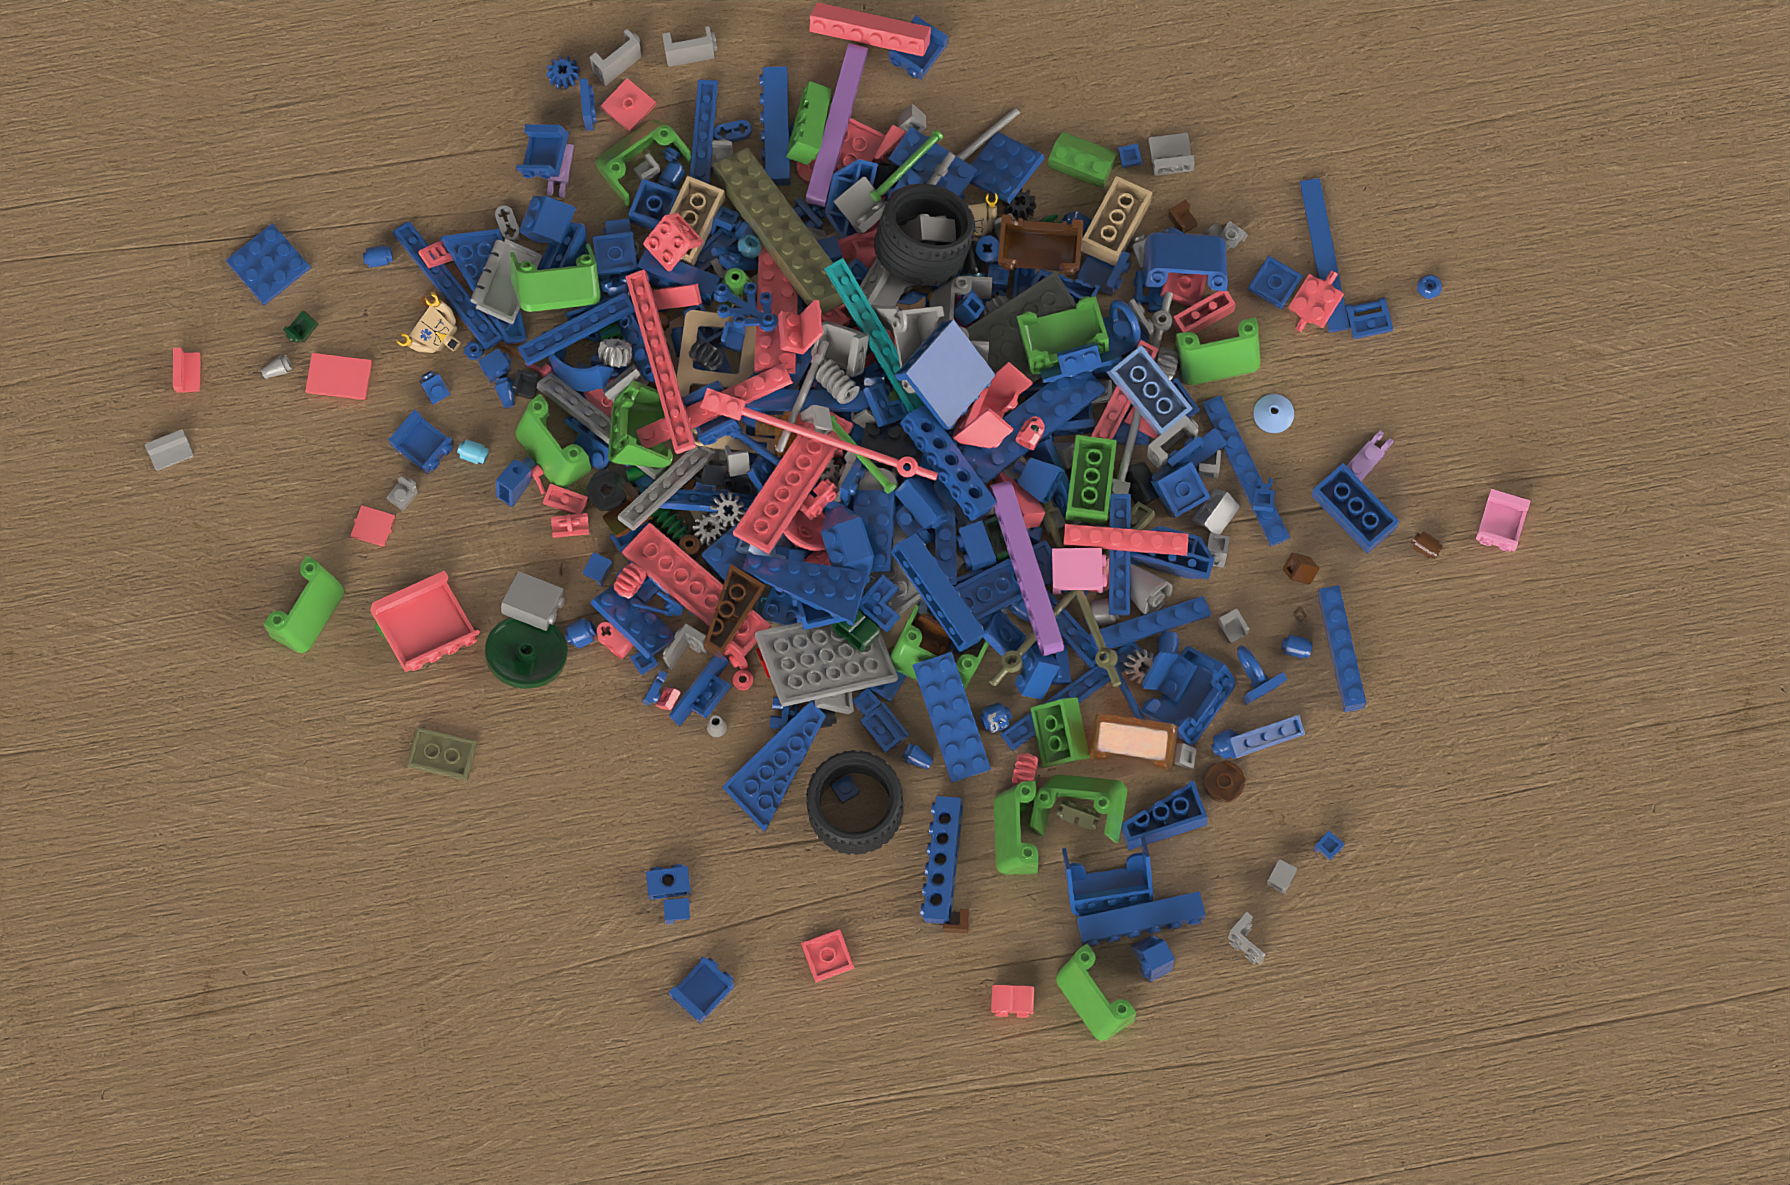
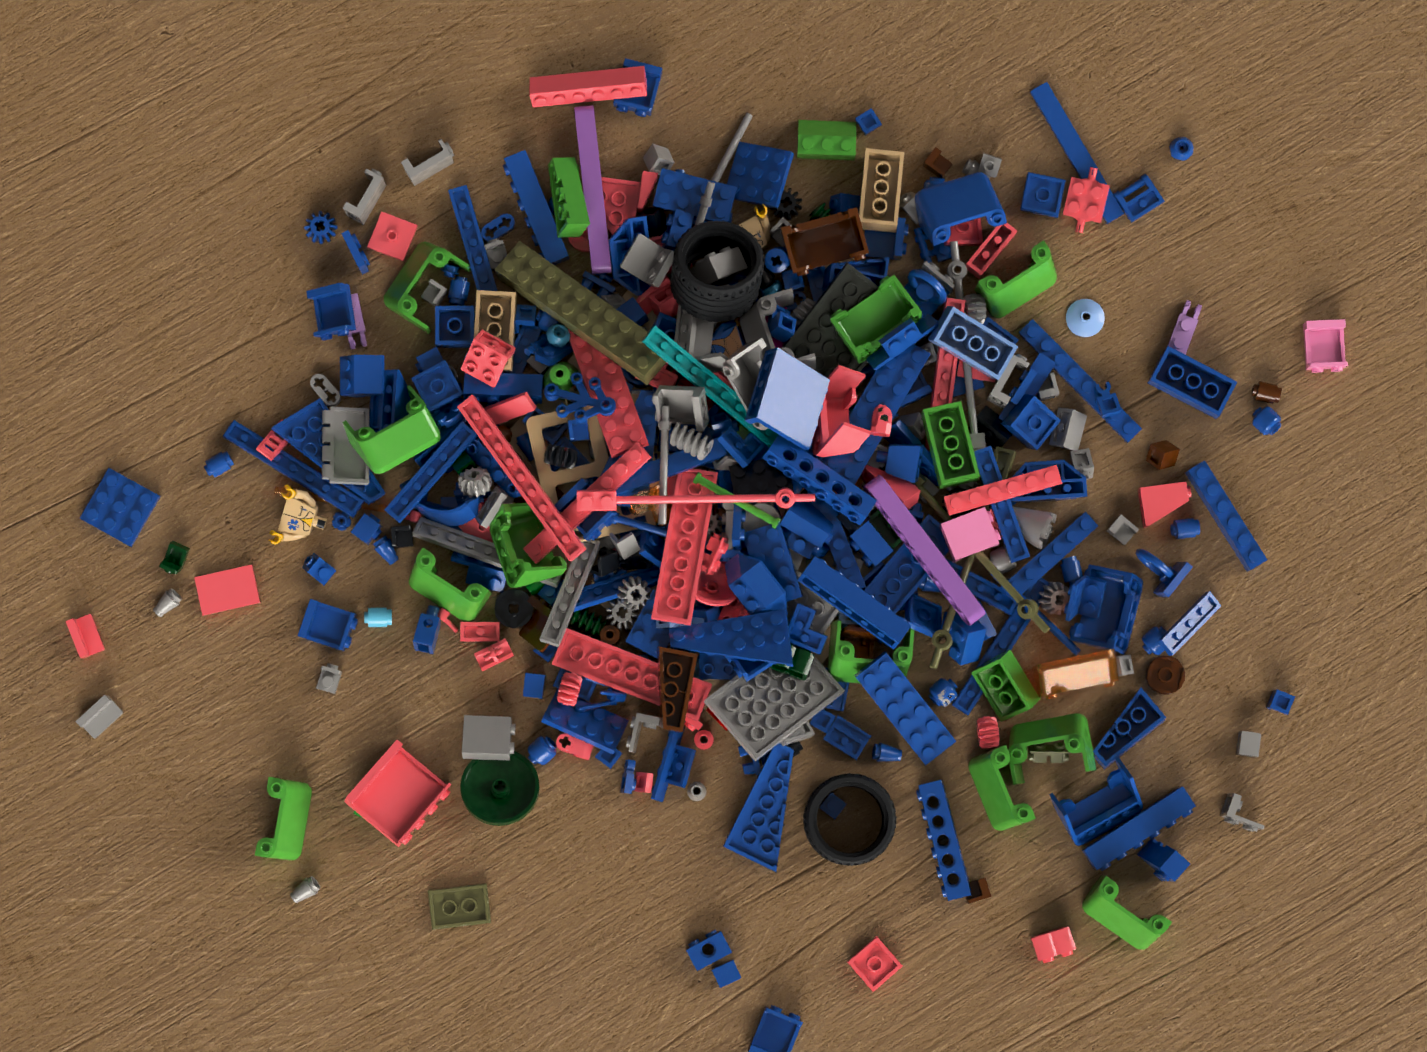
camera: 25 degrees left, 10 degrees up
(299, 683) = (305, 889): none -> light grey cone
(372, 526) = (313, 718): coral piece -> none
(801, 330) = (640, 403): coral bracket -> none
(819, 417) = (689, 481): light grey panel -> none
(936, 136) = (656, 247): bright green bar -> none
(1171, 154) = (904, 106): light grey bracket -> none
(1283, 612) = (1161, 500): none -> coral slope
(1416, 572) = (1266, 420): none -> blue head

